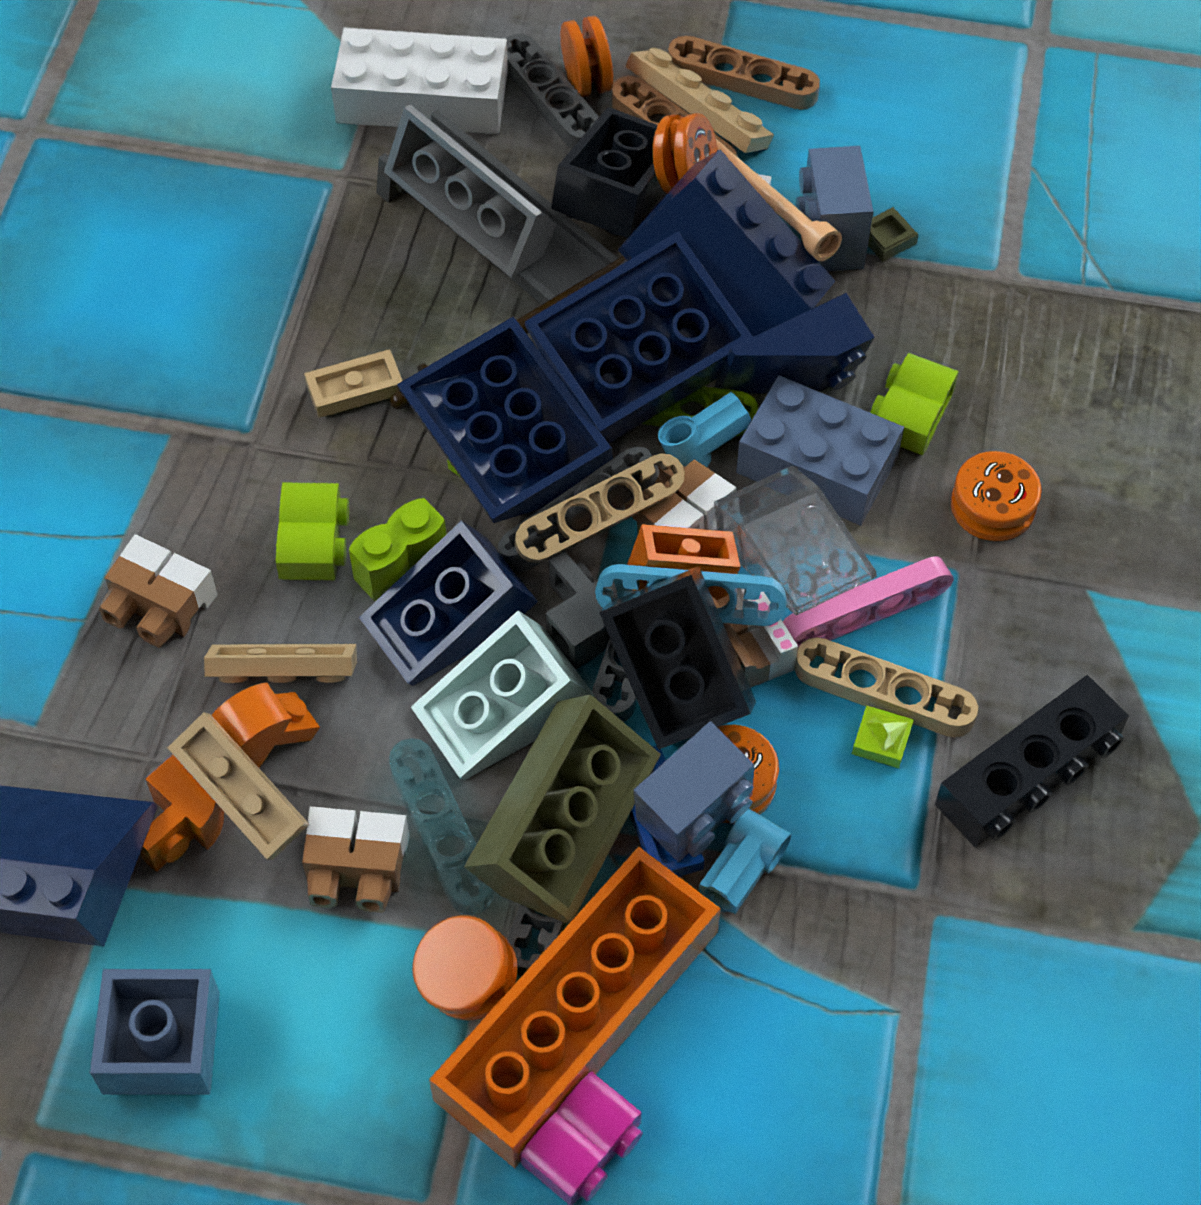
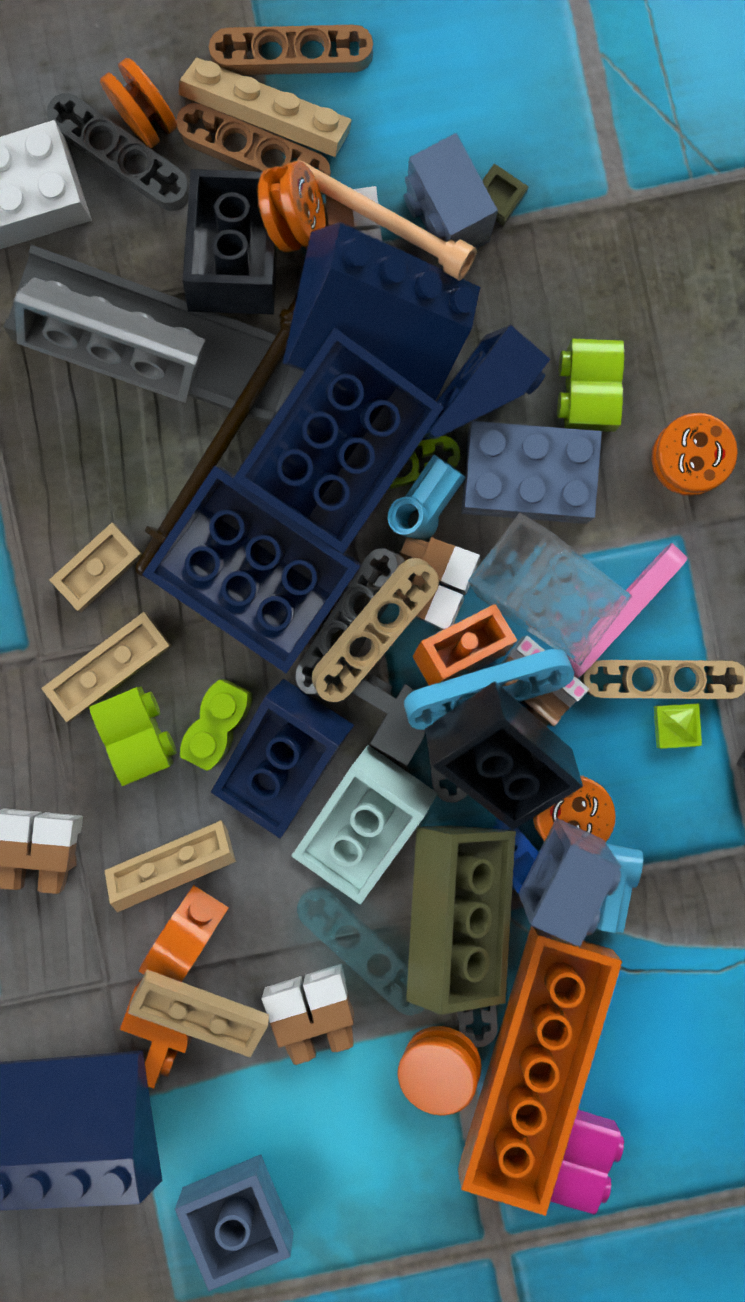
camera: 20 degrees left, 30 degrees up
(338, 460) = (106, 667): none -> tan plate

